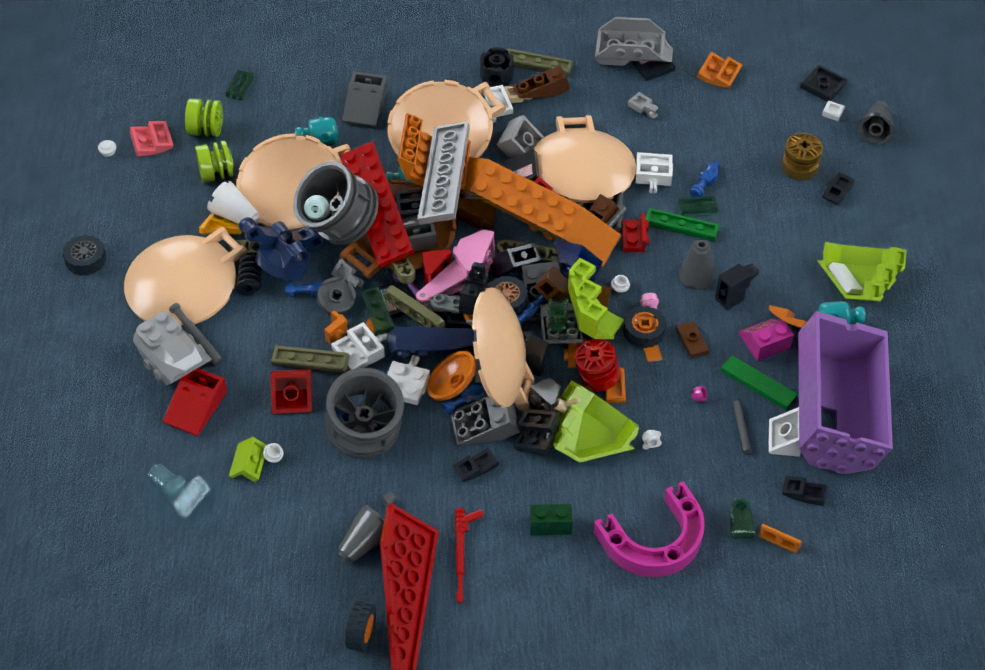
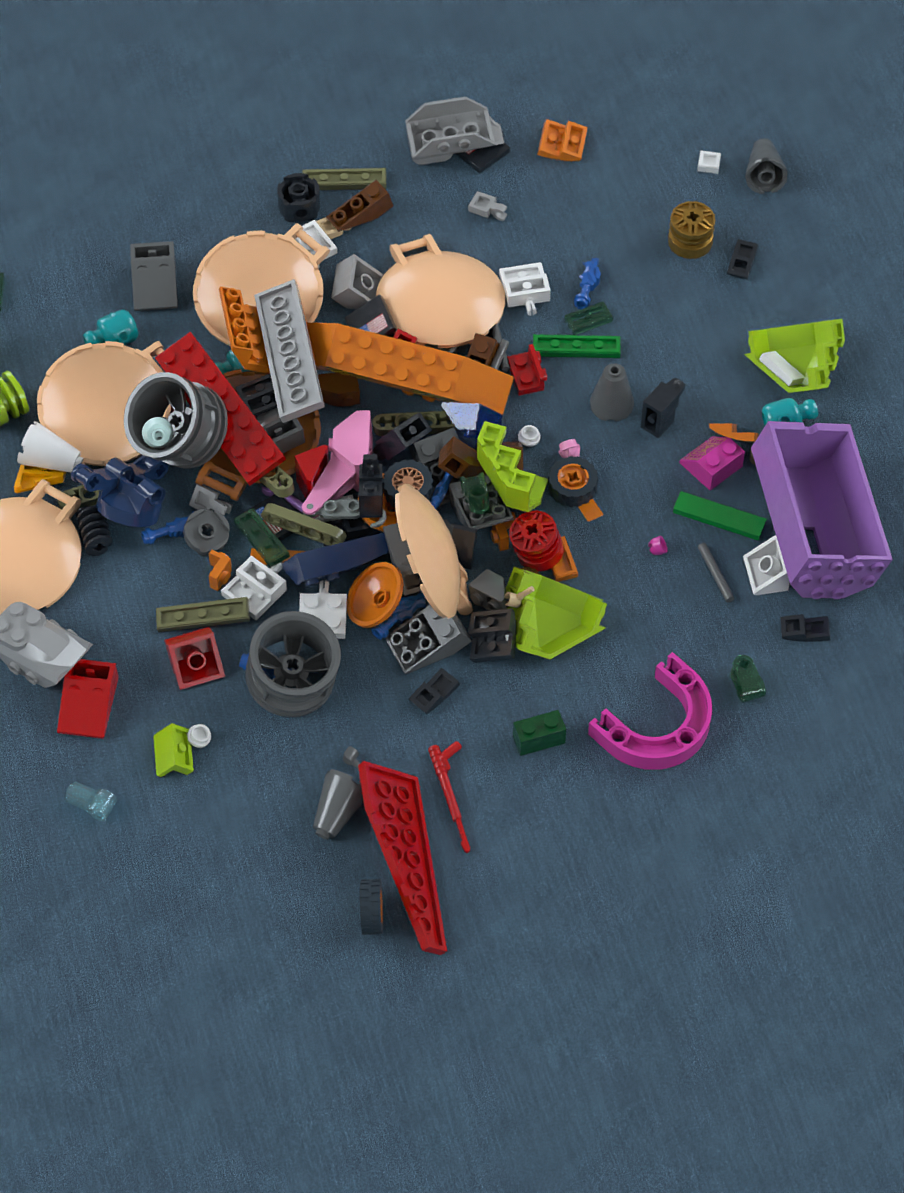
camera: 15 degrees left, 5 degrees up
(190, 496) = (122, 810): clear light blue tile -> none
(197, 335) = (51, 613): dark grey piece -> none
(651, 439) = (621, 612): white plate -> none
(692, 339) = (630, 483): reddish brown plate -> none
(780, 538) = (794, 689): orange slope -> none
(823, 83) = (688, 129): black tile -> none

